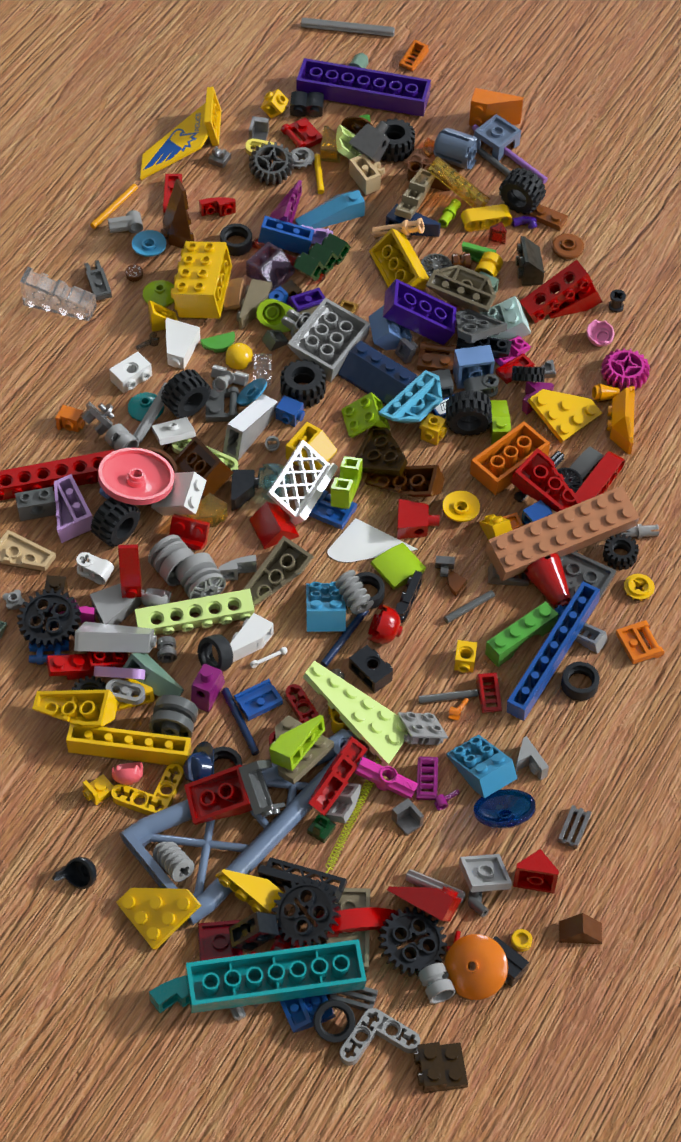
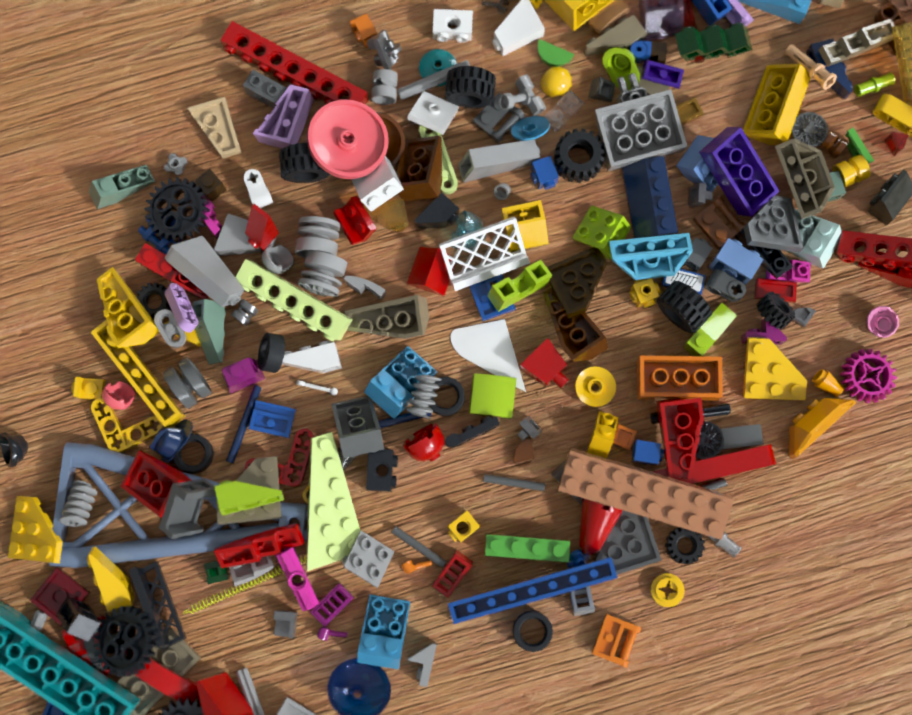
camera: 45 degrees right, 25 degrees up
(328, 648) = (357, 426): none -> dark grey slope

